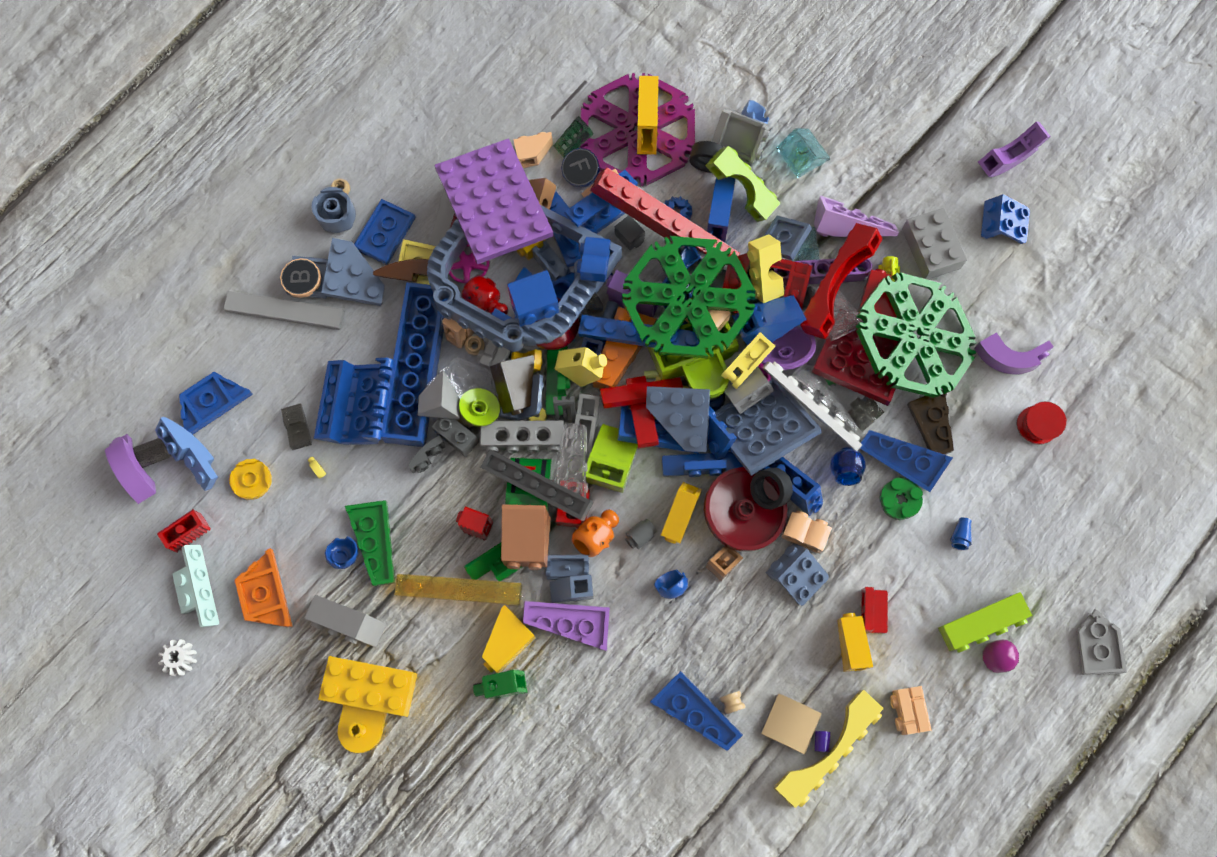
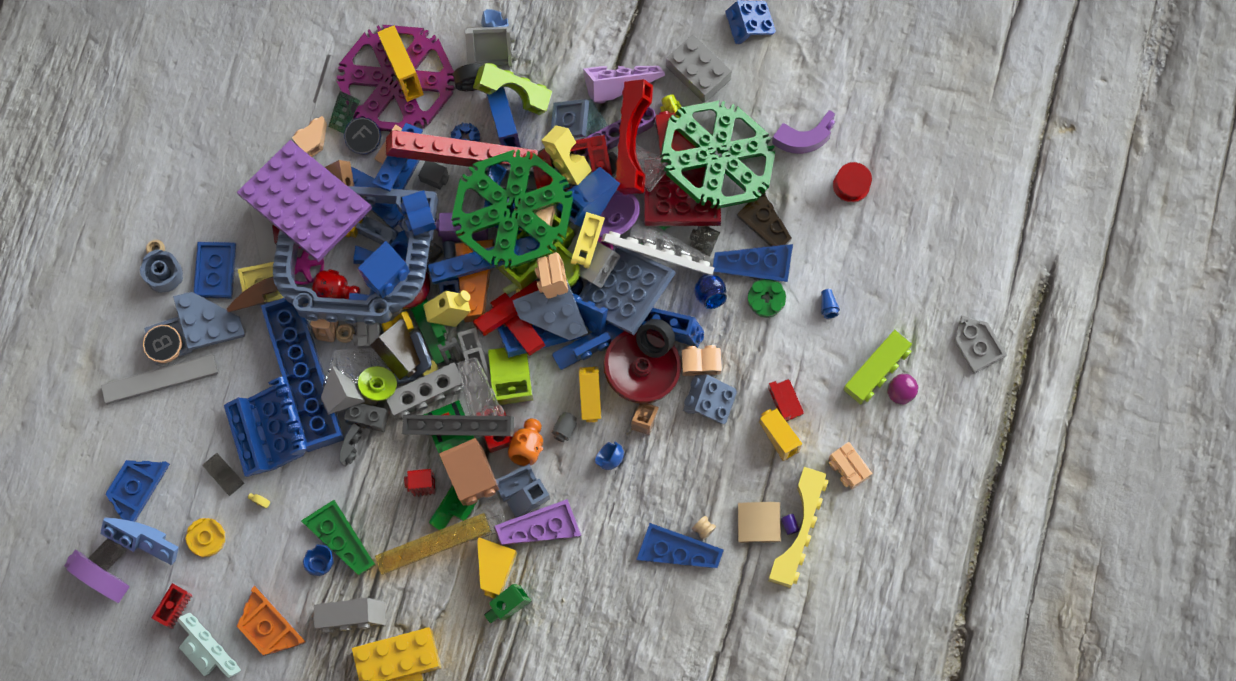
camera: 25 degrees left, 0 degrees up
(696, 379) = (551, 275): none -> light nougat brick
(802, 151) = (550, 35): clear light blue slope -> none

